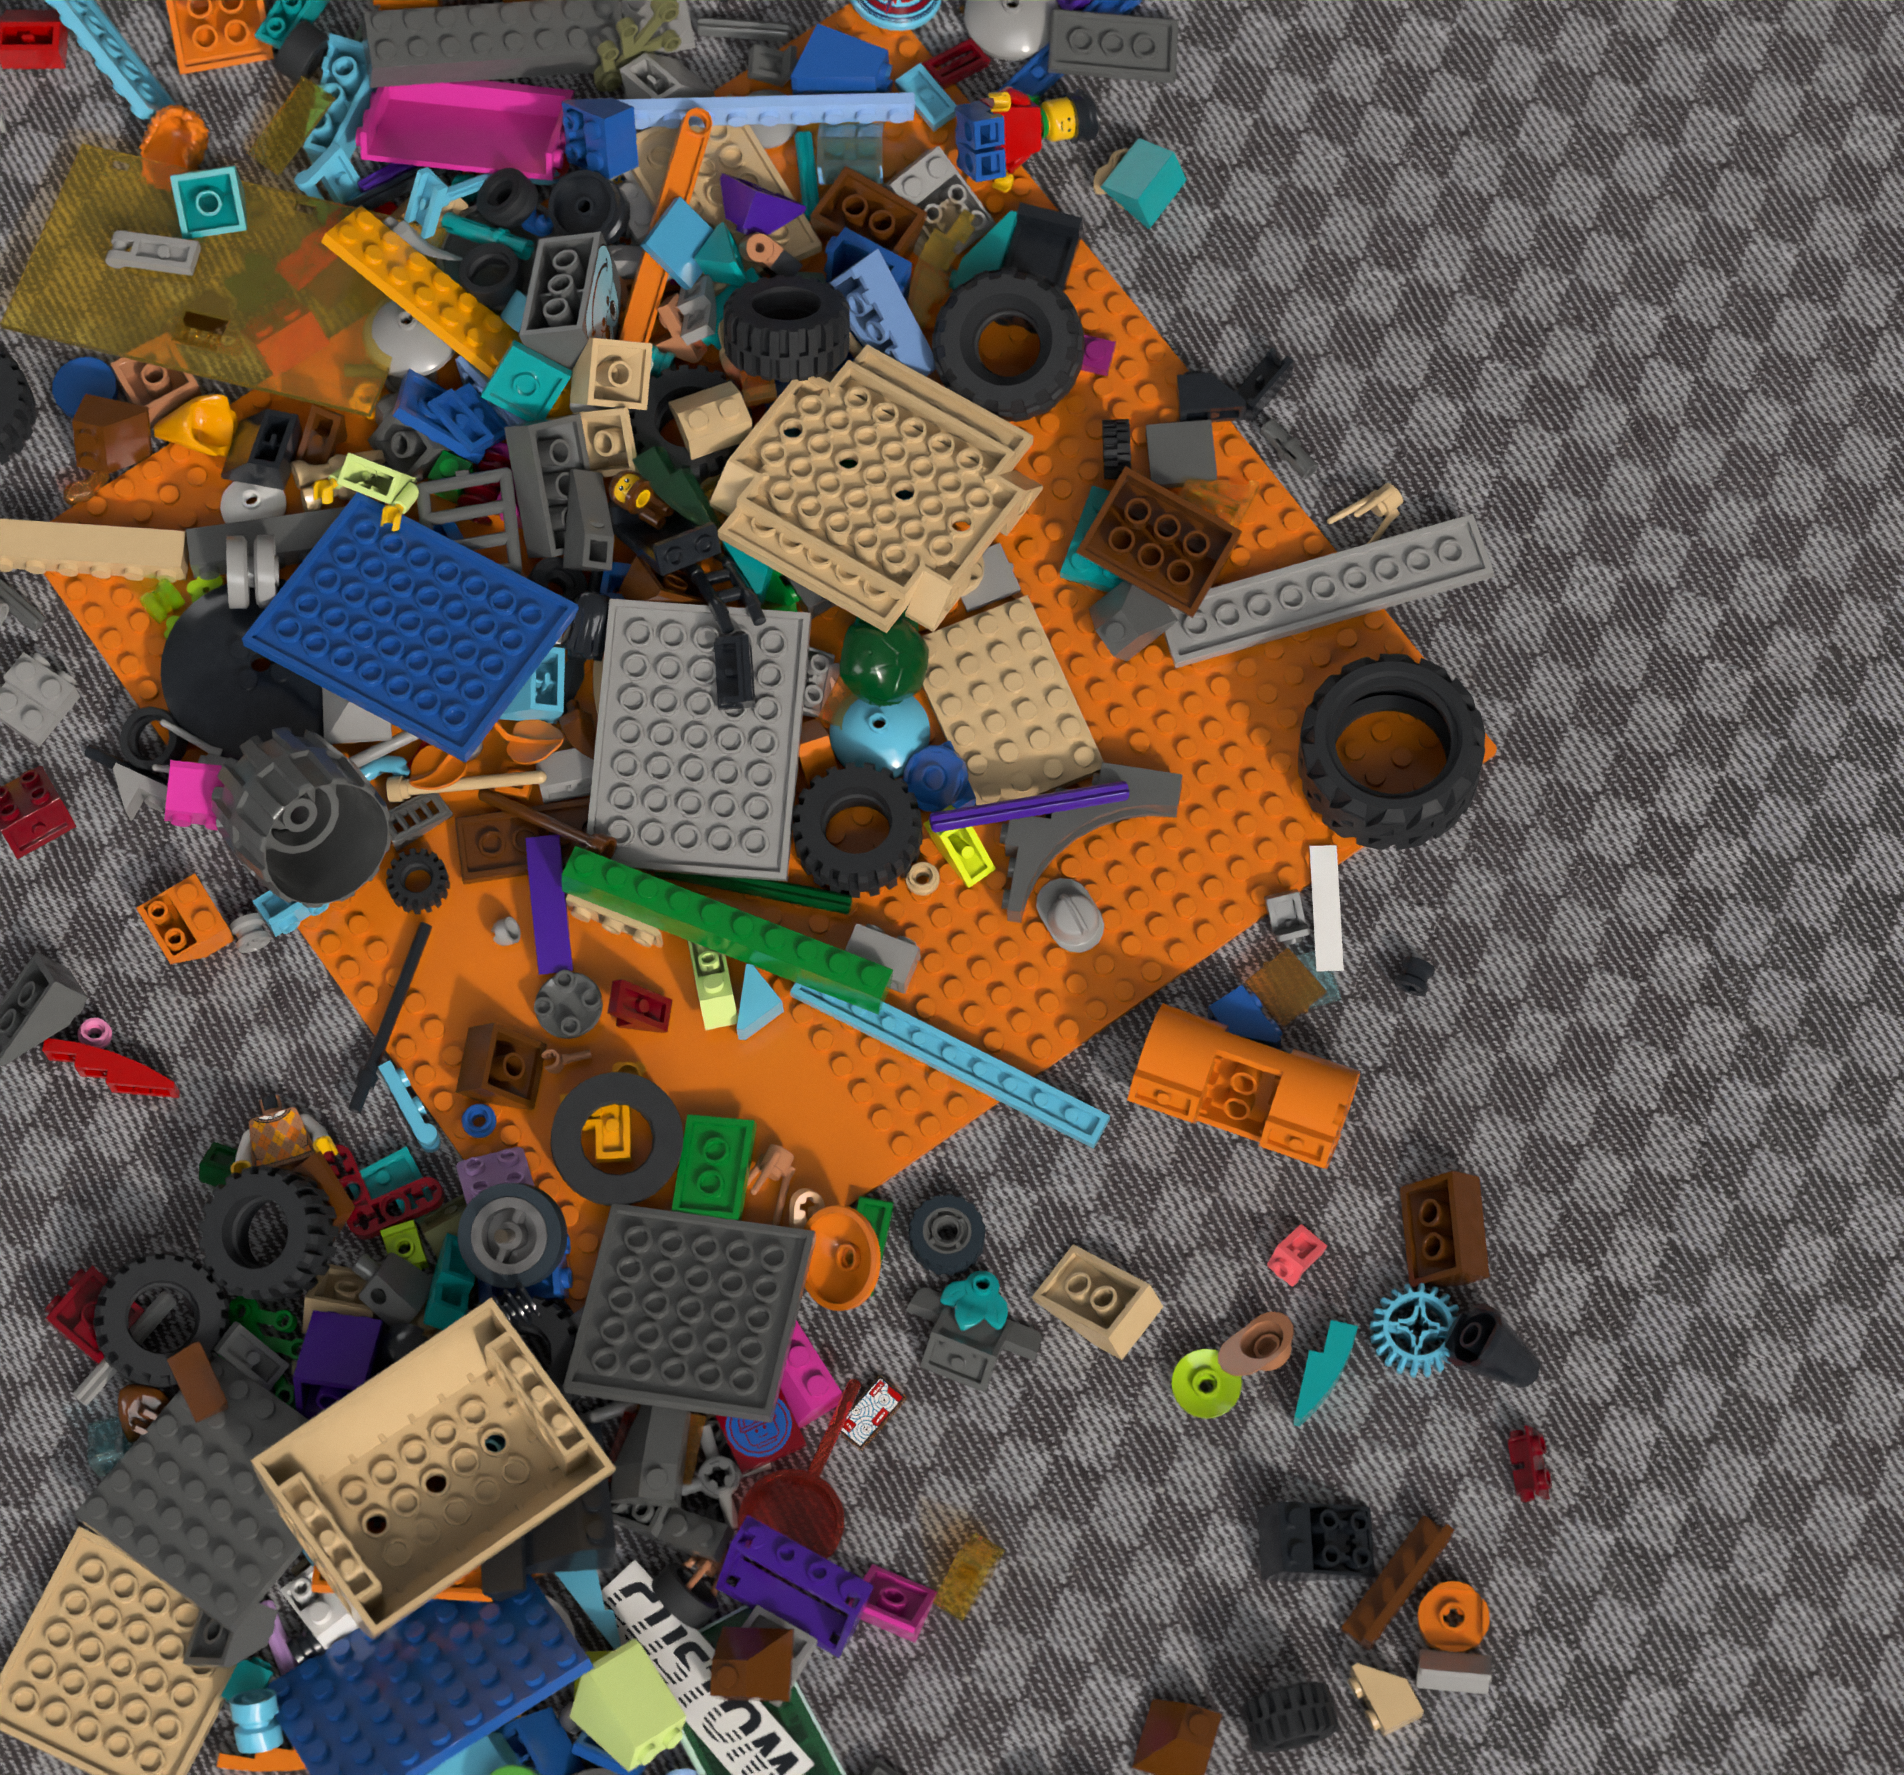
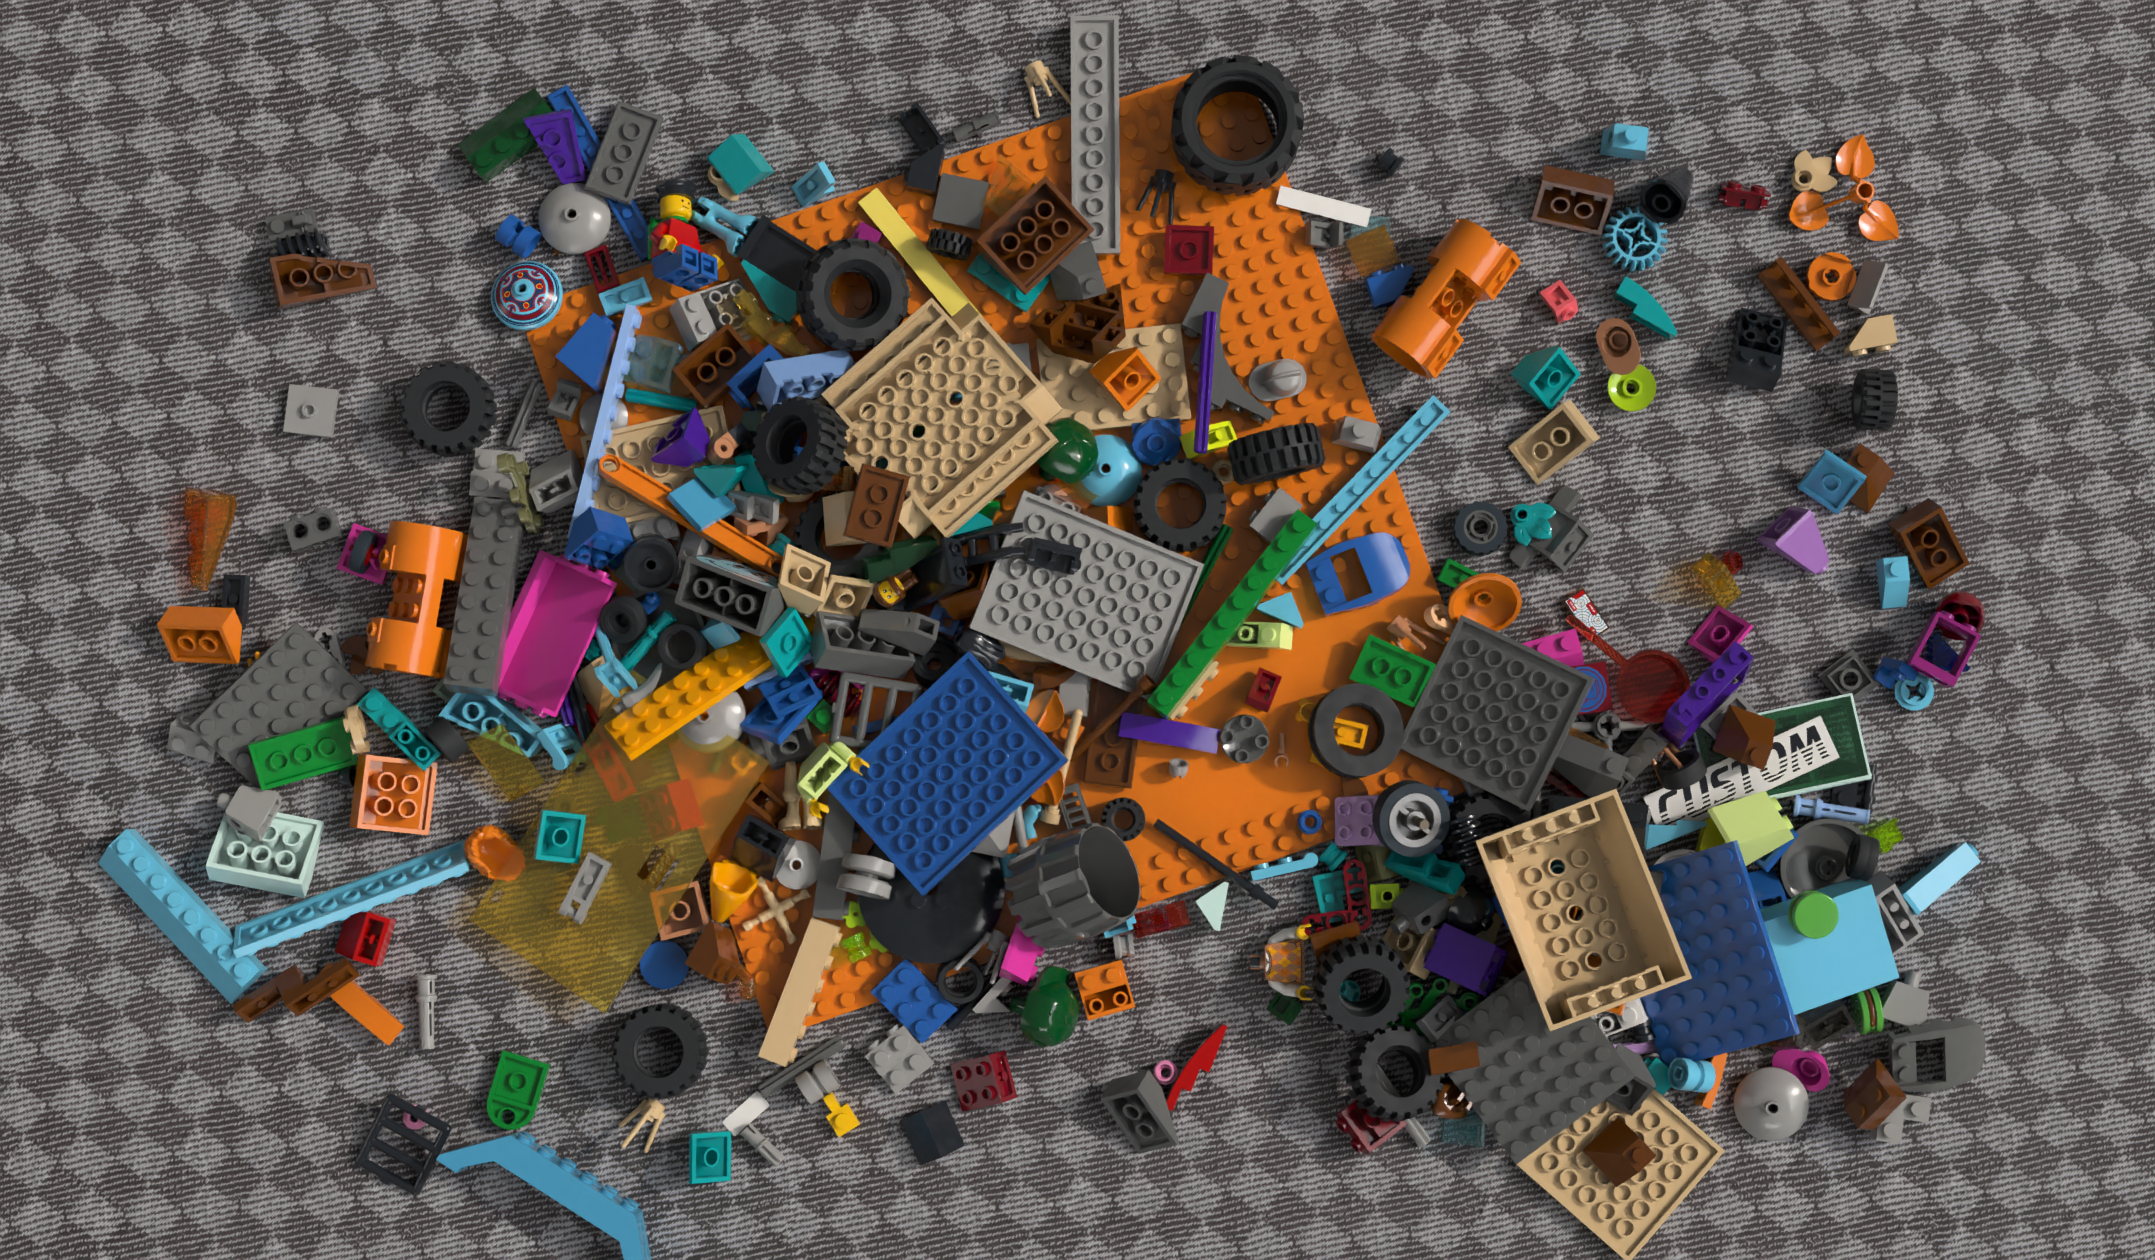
camera: 75 degrees left, 15 degrees up
(111, 691) = (913, 1000): none -> blue plate
(128, 1657) = (1619, 1152): none -> reddish brown slope
(140, 853) = (1049, 1010): none -> dark green piece
(186, 494) = (776, 910): none -> tan piece
(258, 1232) = (1351, 990): none -> teal wheel
(299, 970) = (1161, 919): none -> clear red slope
(334, 1031) = (1213, 904): none -> light aqua slope
(440, 1165) = (1332, 856): none -> teal wheel
(501, 1067) = (1277, 797): reddish brown slope -> none
(541, 1165) = (1353, 787): none -> reddish brown tile
(731, 432) = (876, 506): none -> reddish brown tile
(855, 1118) = (1383, 565): none -> blue slope
(958, 919) = (1276, 453): none -> black tyre
(1007, 710) = (1125, 376): none -> orange slope
(1007, 1596) = (1733, 561): none -> clear red plate
(1024, 1031) = (1356, 434): none -> light grey torso
(1055, 1671) = (1797, 540): none -> medium lavender slope
(1056, 167) = (732, 239): none -> medium azure piece
(1056, 639) = (1083, 327): none -> reddish brown wedge
(1086, 431) = (914, 252): none -> light yellow tile
(1147, 277) = (814, 184): none -> medium azure slope
(1157, 1695) = (1831, 481): none -> dark azure tile
(1186, 1264) = (1546, 375): none -> teal slope
(1208, 750) = (1188, 250): none -> dark red plate
(1288, 690) = (1162, 183): none -> black plant
(1549, 1278) = (1626, 141): none -> medium azure torso
(1555, 1663) = (1858, 161): none -> orange plant
(1597, 1556) = (1814, 171): none -> tan plate

